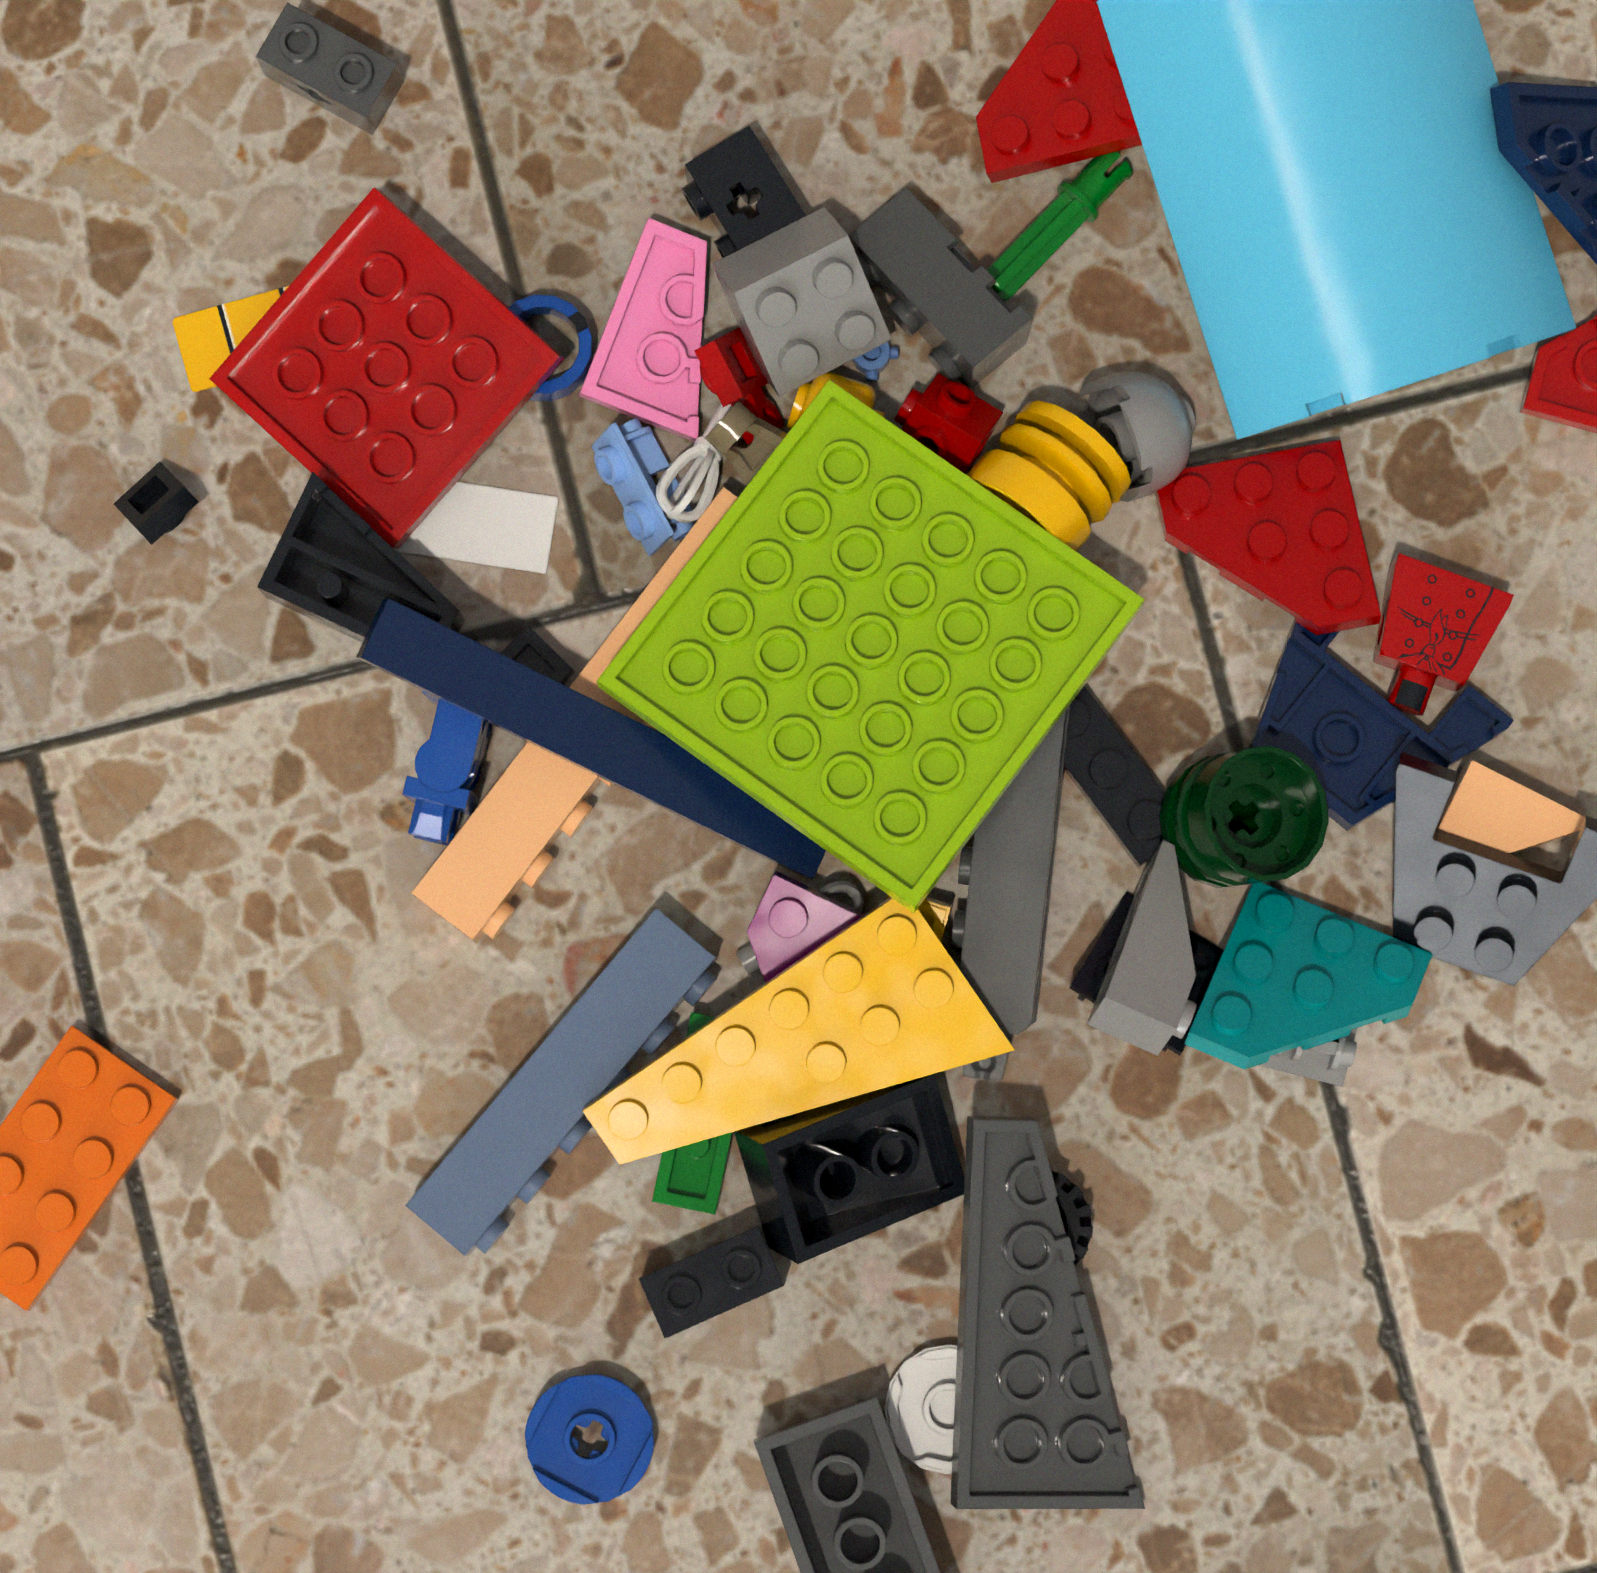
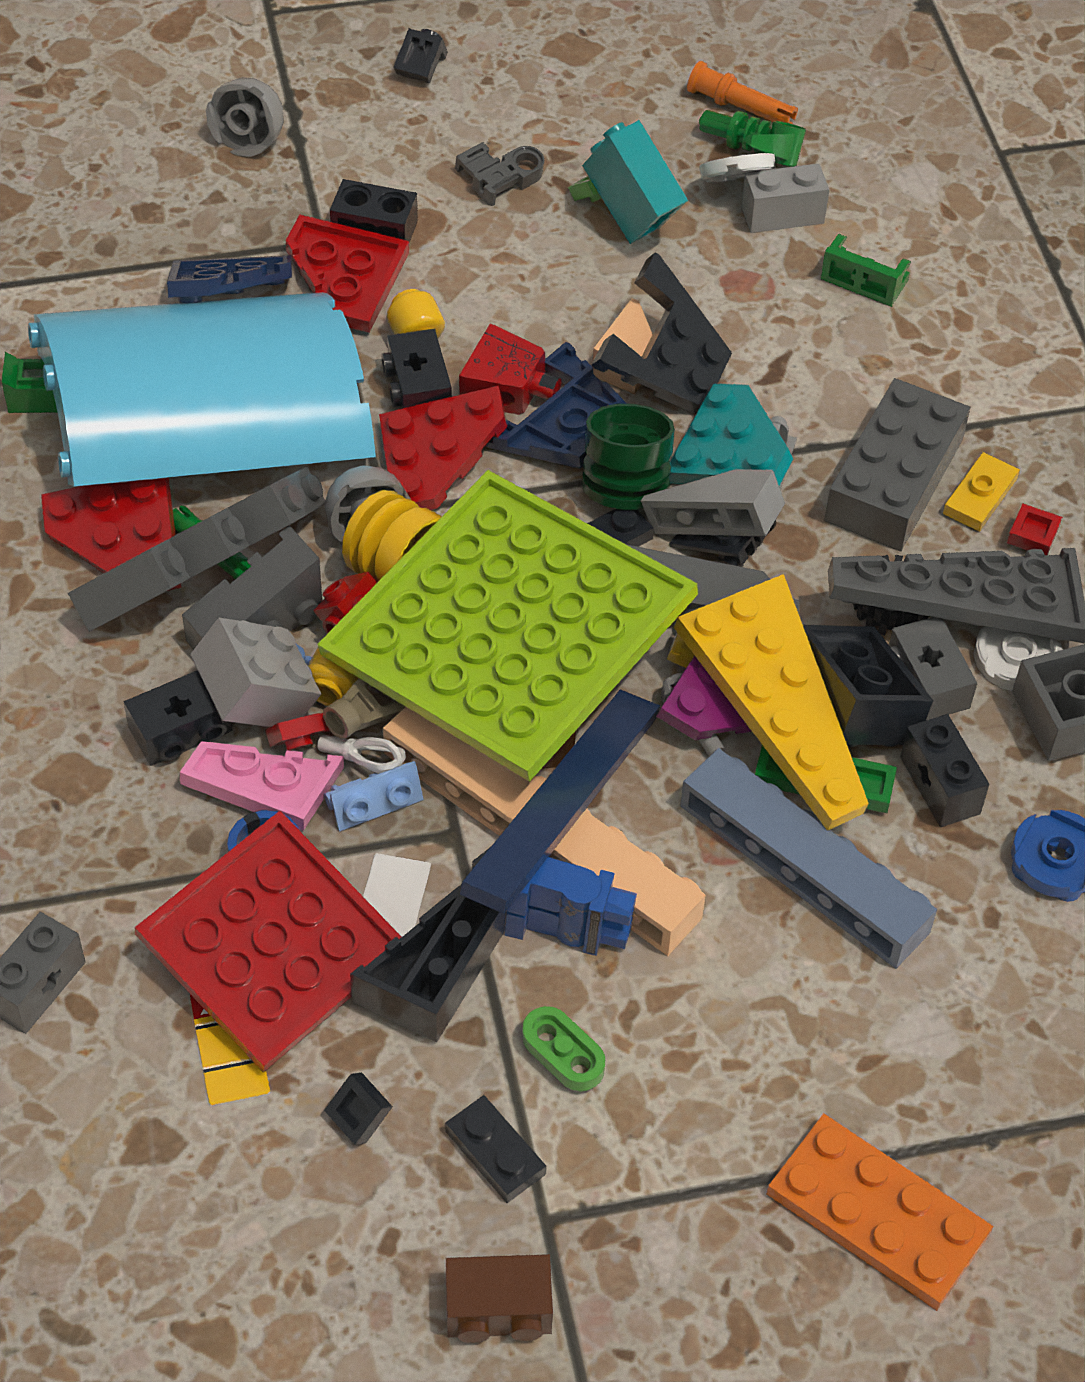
camera: 90 degrees left, 30 degrees down
(118, 680) = (495, 1148): none -> black plate
(252, 756) = (566, 1050): none -> bright green plate
(872, 1301) = (936, 663): none -> dark grey brick
(1011, 212) = (197, 548): none -> dark grey arch
(1175, 1448) = (1034, 529): none -> red plate
(1256, 1372) = (981, 491): none -> yellow plate
(1286, 1240) = (897, 464): none -> dark grey brick
(1457, 495) = (416, 369): none -> black brick
(1534, 480) = (414, 311): none -> yellow head

